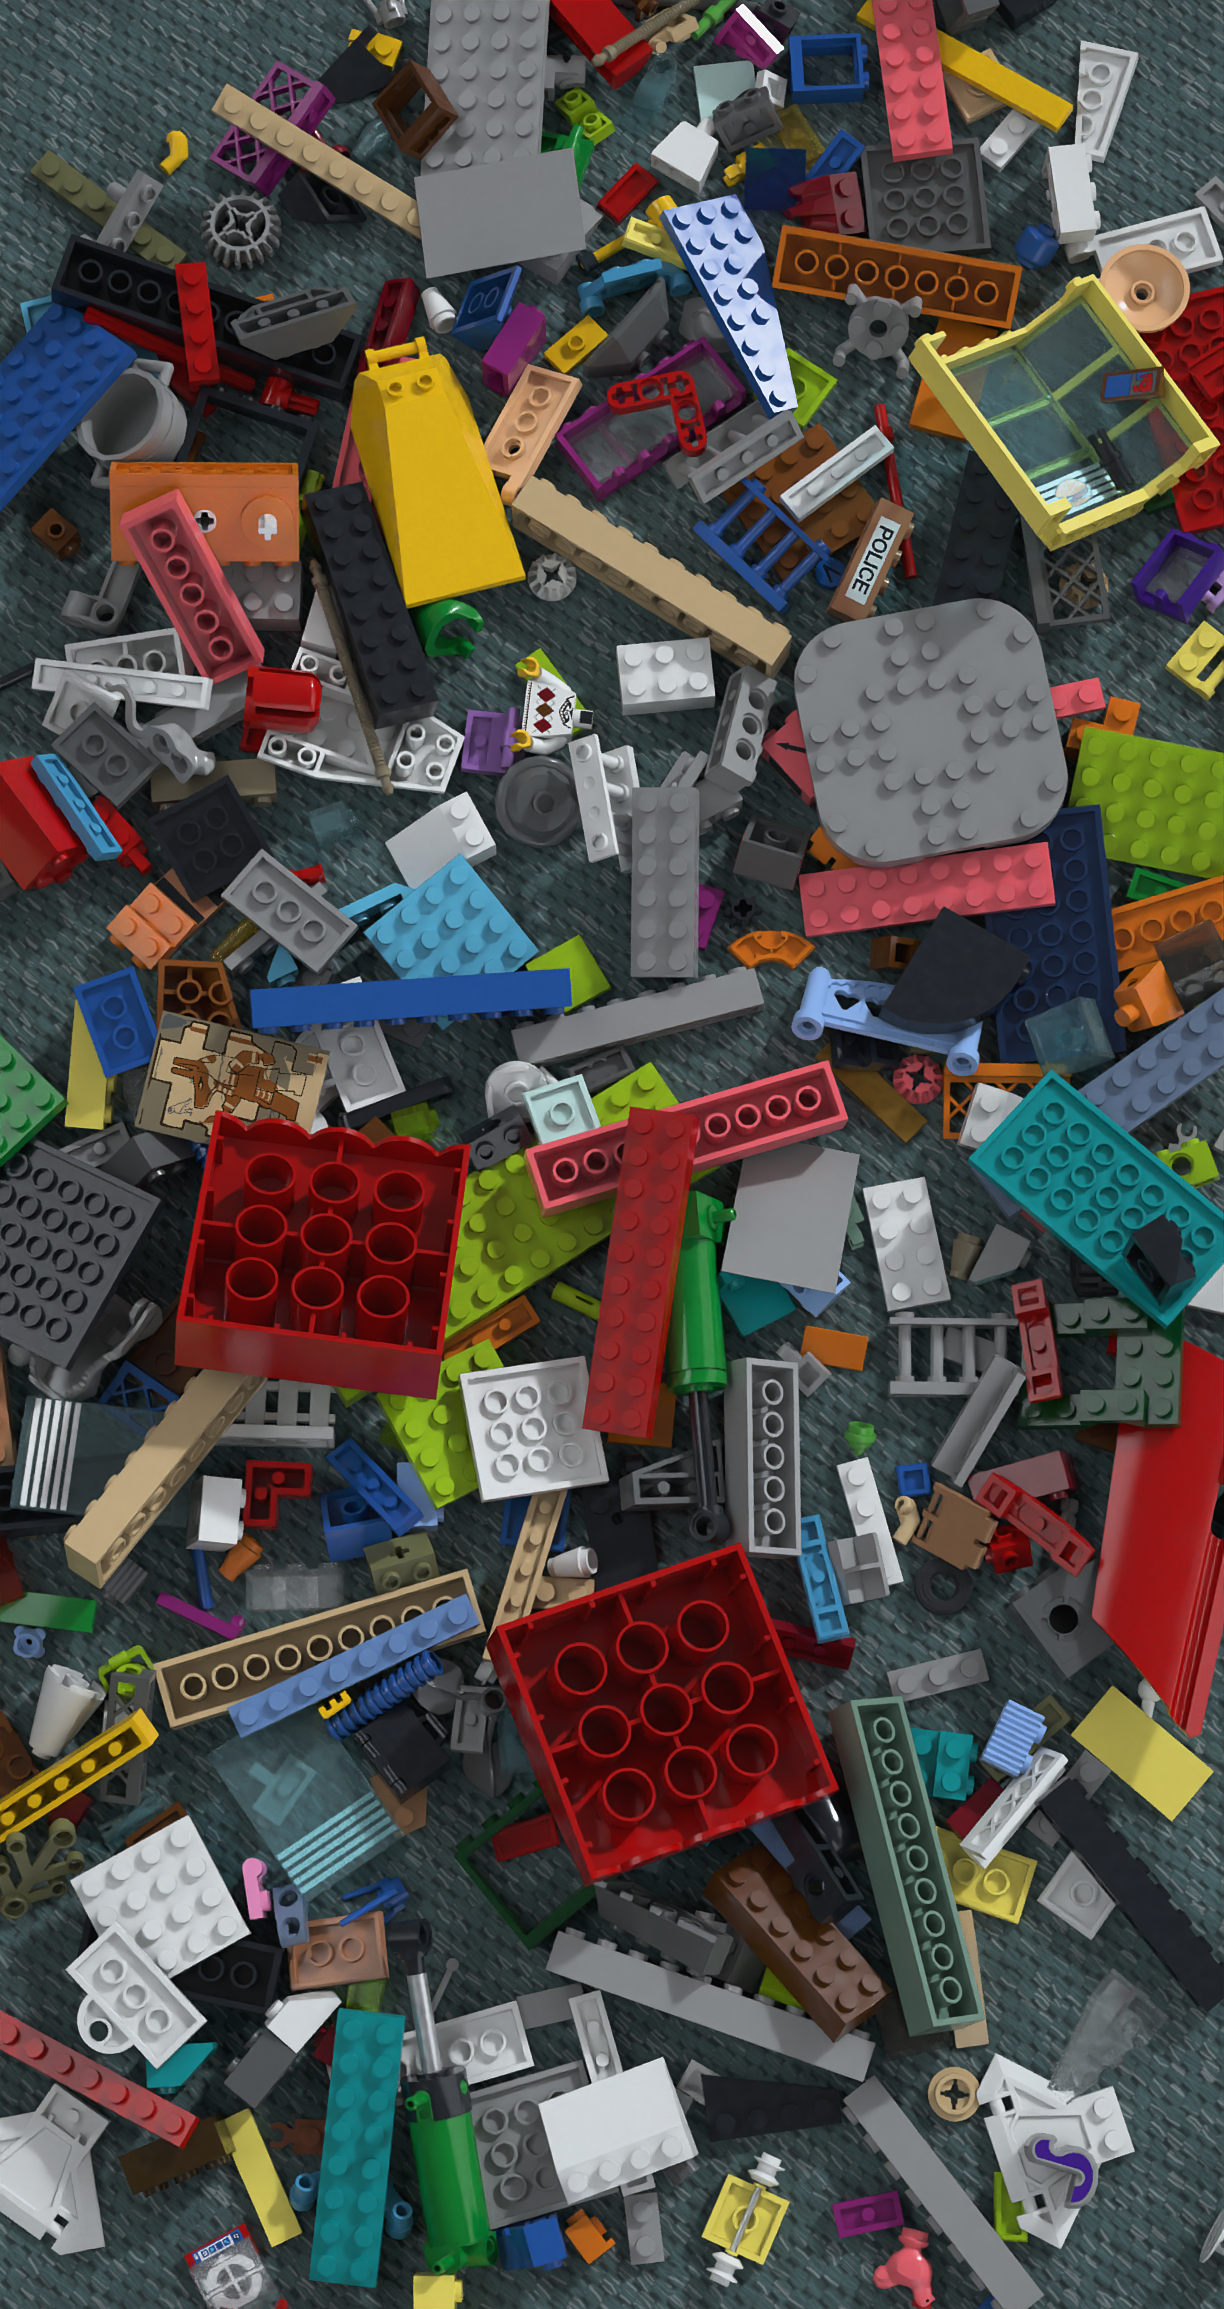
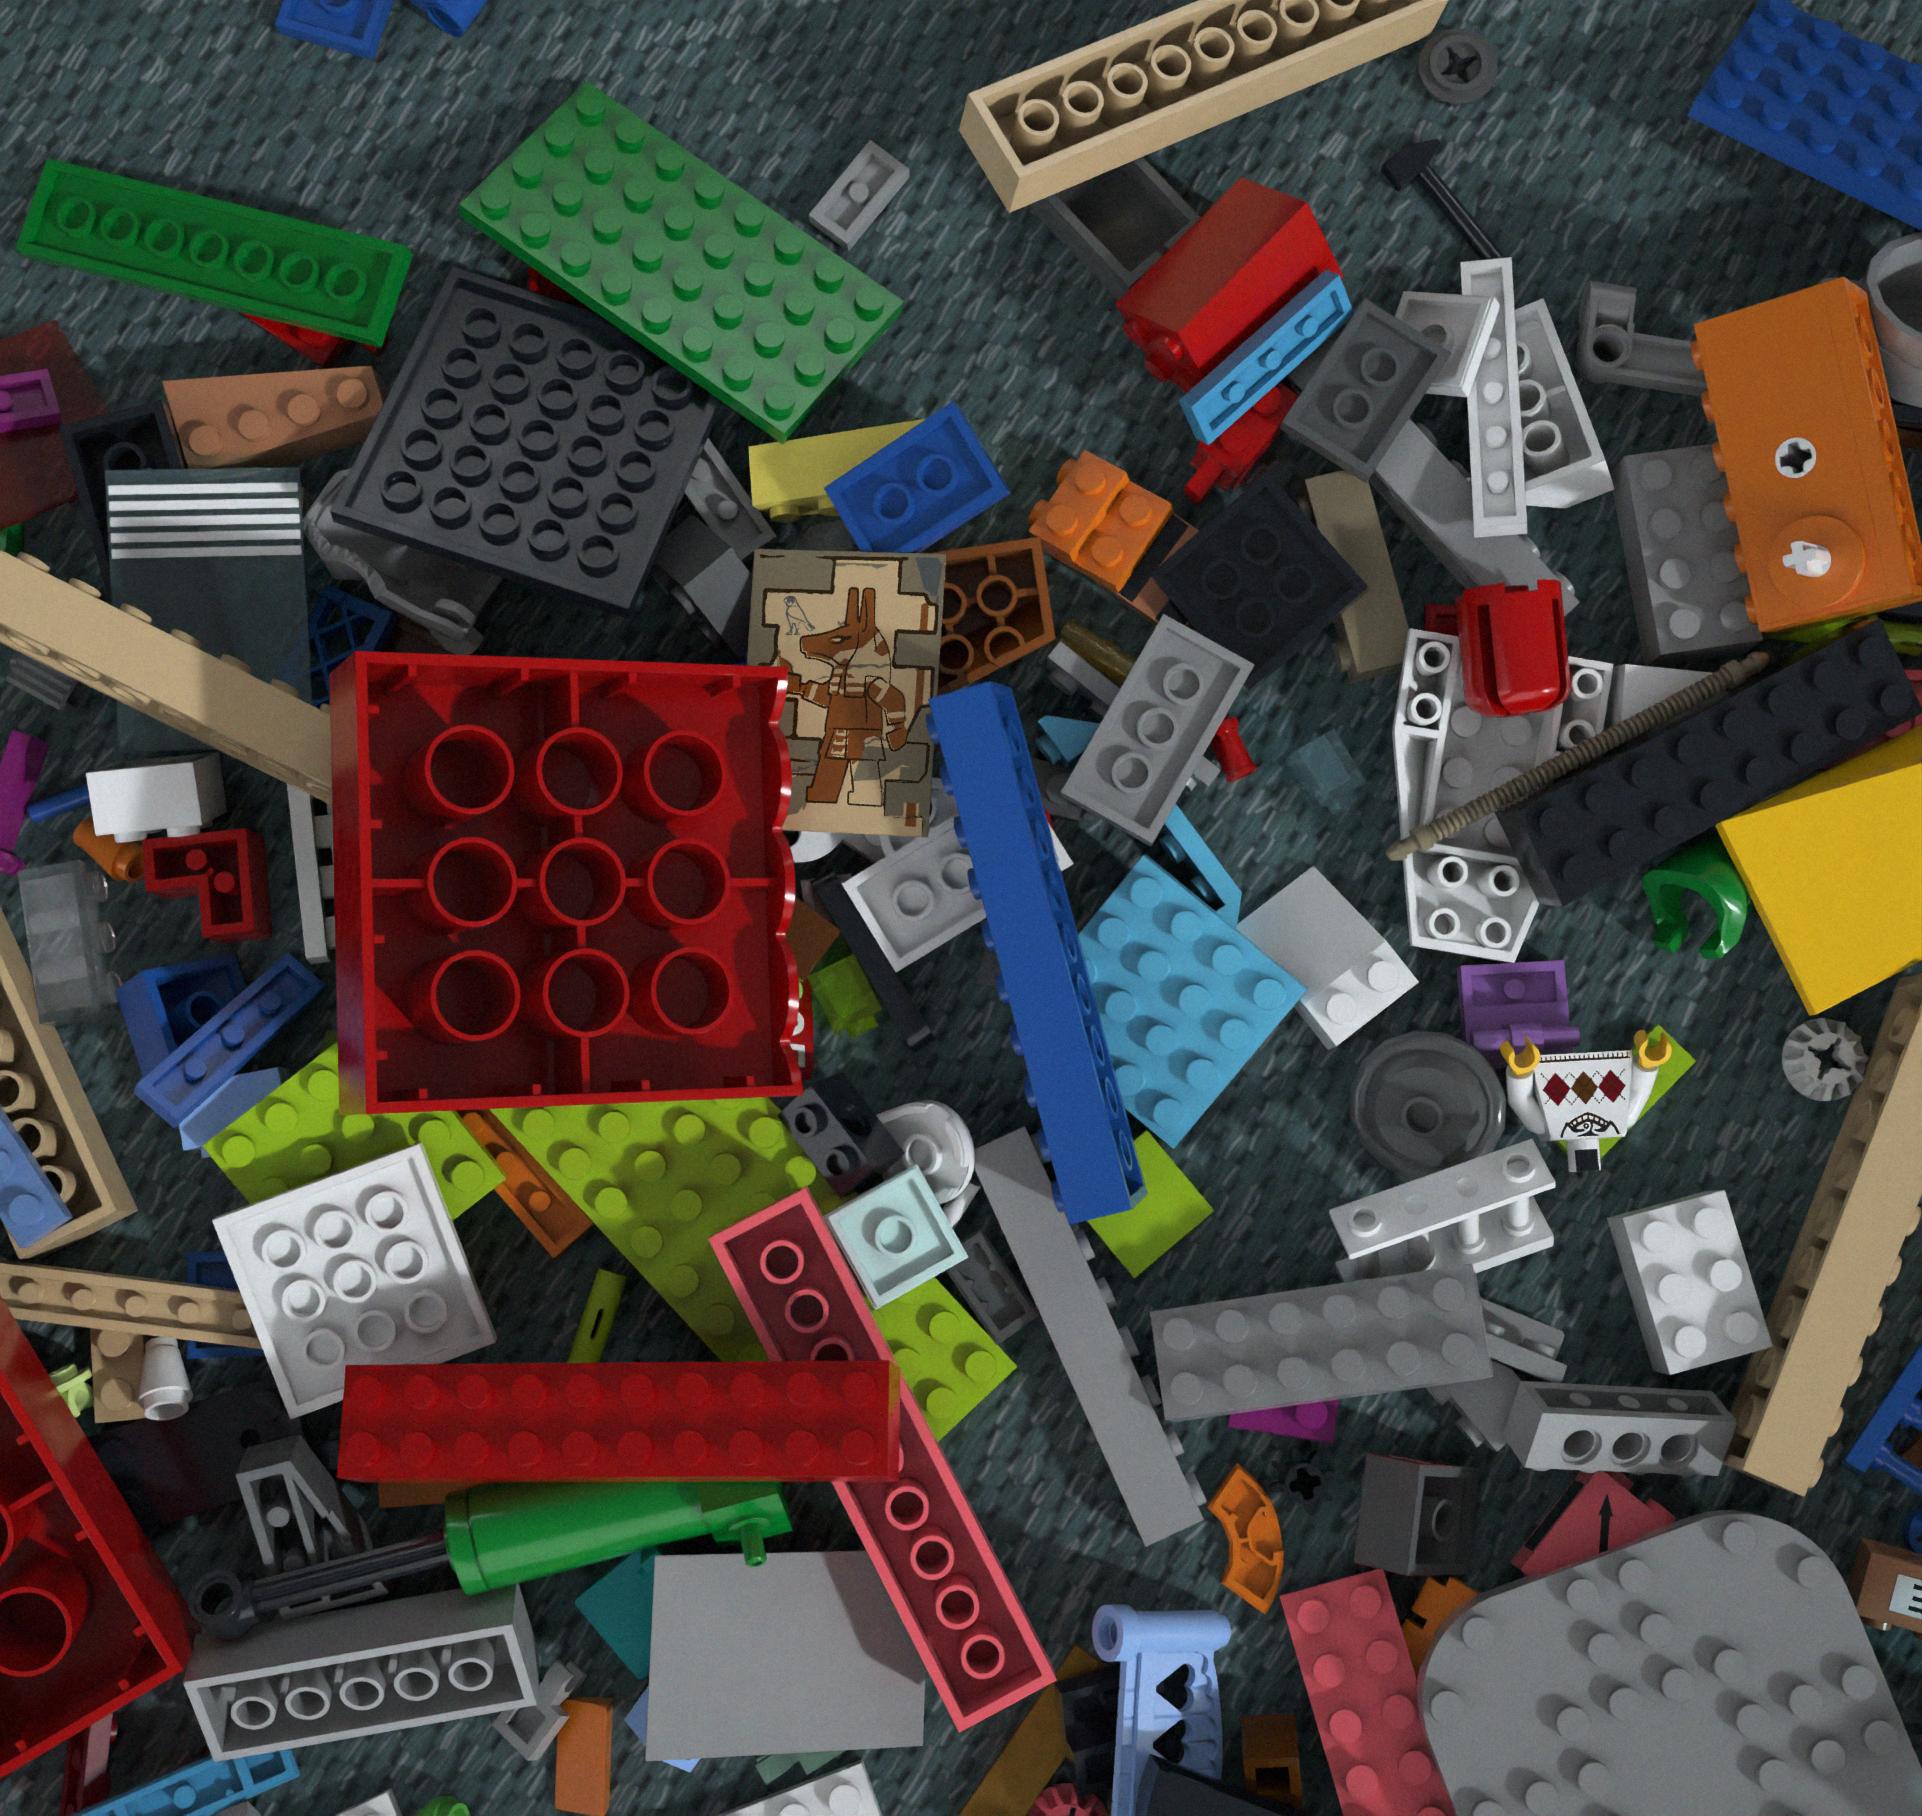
camera: 85 degrees right, 5 degrees up
(57, 535) = (1724, 250): reddish brown brick -> none
(167, 741) = (1406, 482): light grey animal -> none
(192, 587) = (1678, 459): coral brick -> none
(401, 1562) = (110, 1077): olive brick -> none

